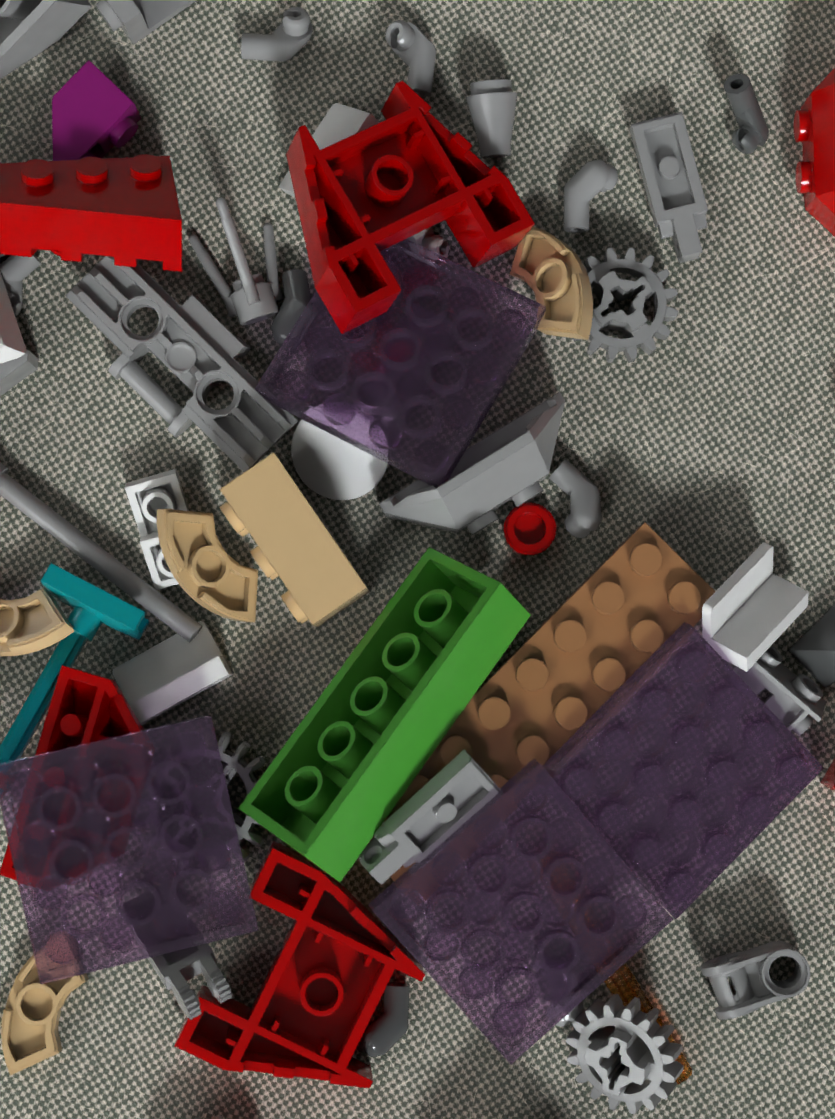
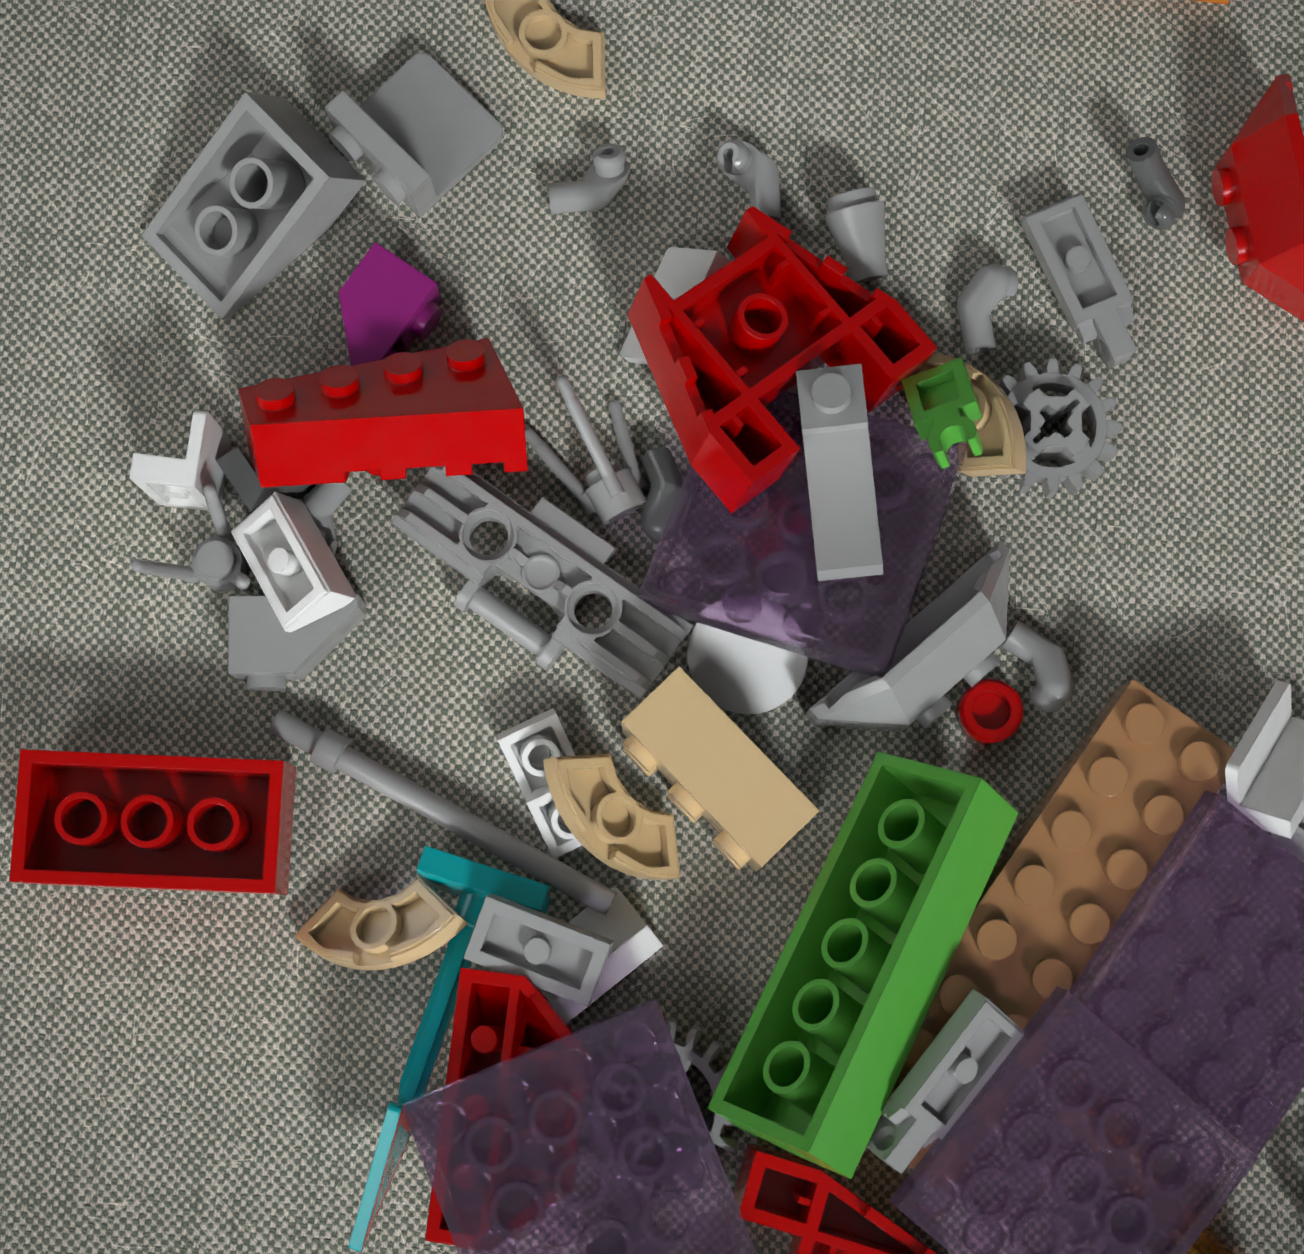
camera: 10 degrees left, 5 degrees down
(128, 659) = (536, 945): none -> light grey plate
(433, 314) = (839, 472): none -> light grey slope
(529, 273) = (944, 408): none -> bright green plate

